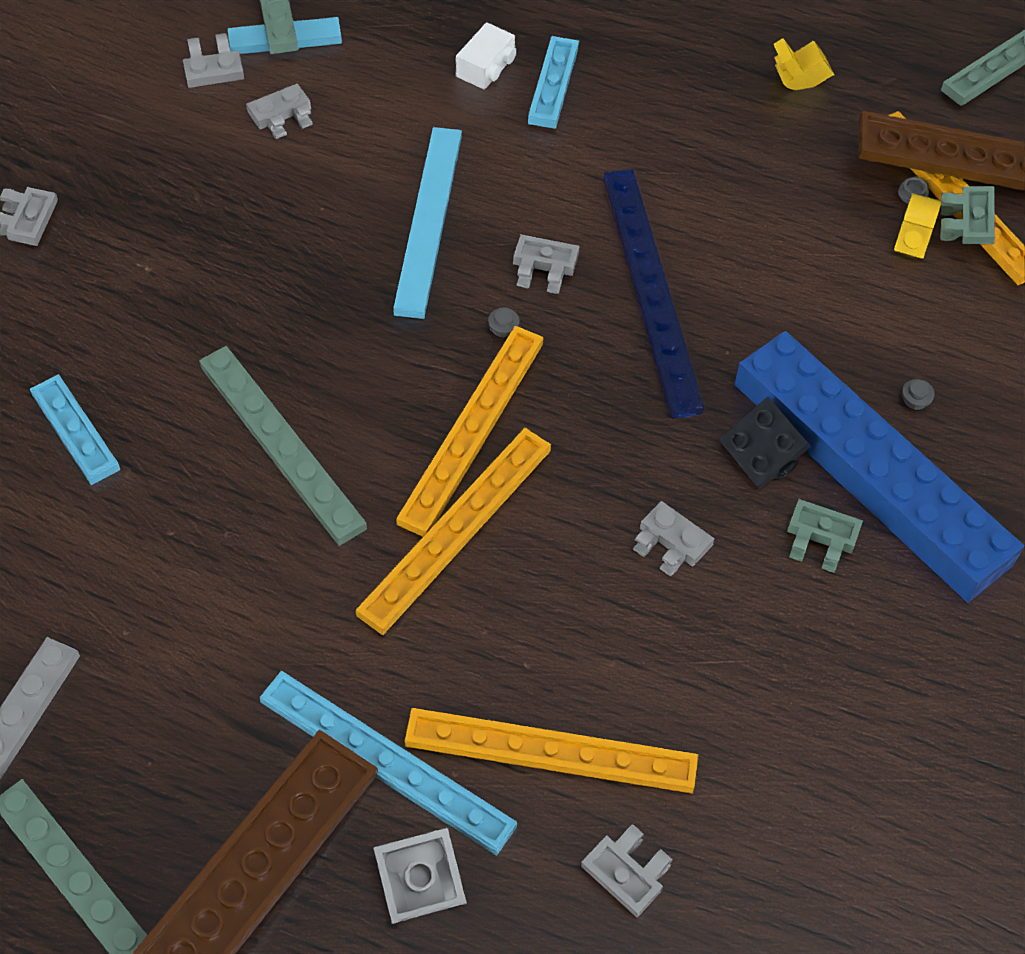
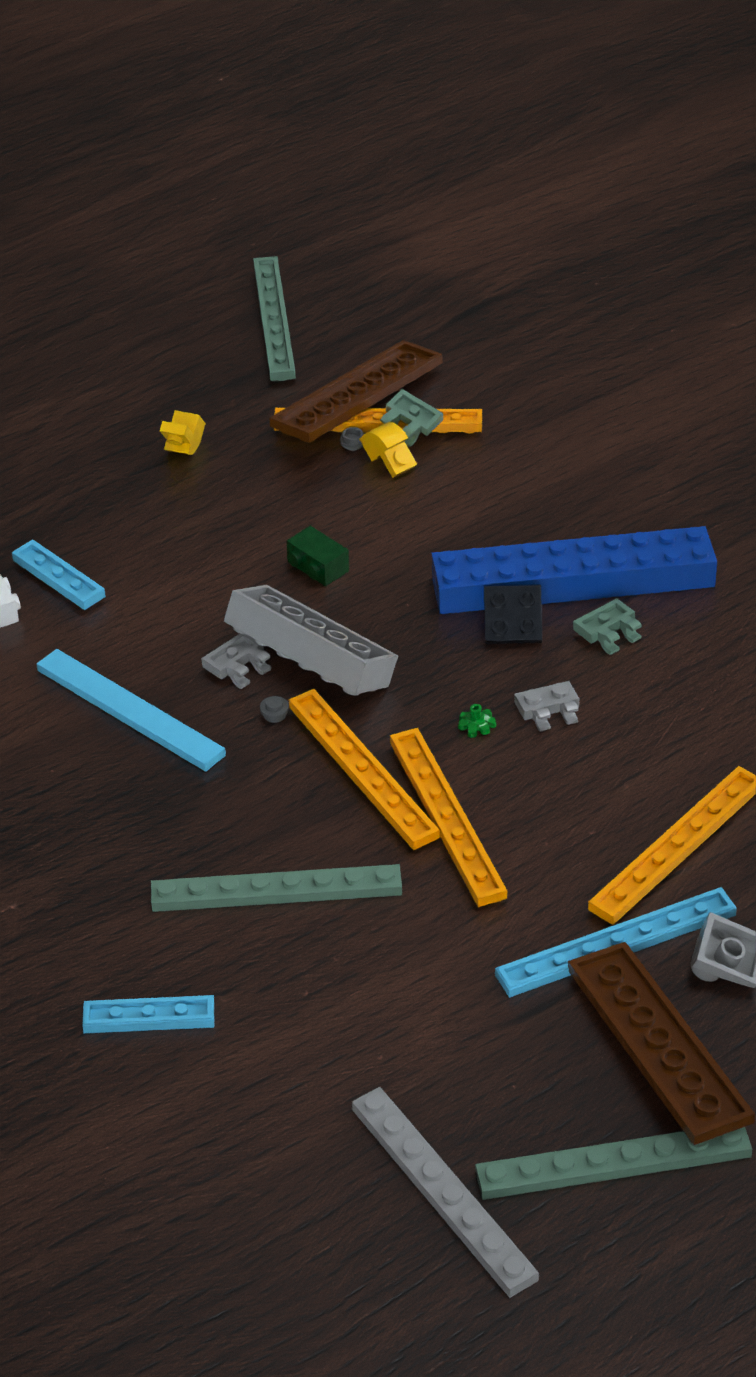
camera: 55 degrees left, 15 degrees down
(594, 300) = (310, 639): none -> light grey brick
(606, 489) = (476, 721): none -> green plant
(653, 295) = (375, 628): clear blue plate -> none
(724, 249) = (317, 555): none -> dark green brick
(917, 394) = (531, 524): dark grey plate -> none

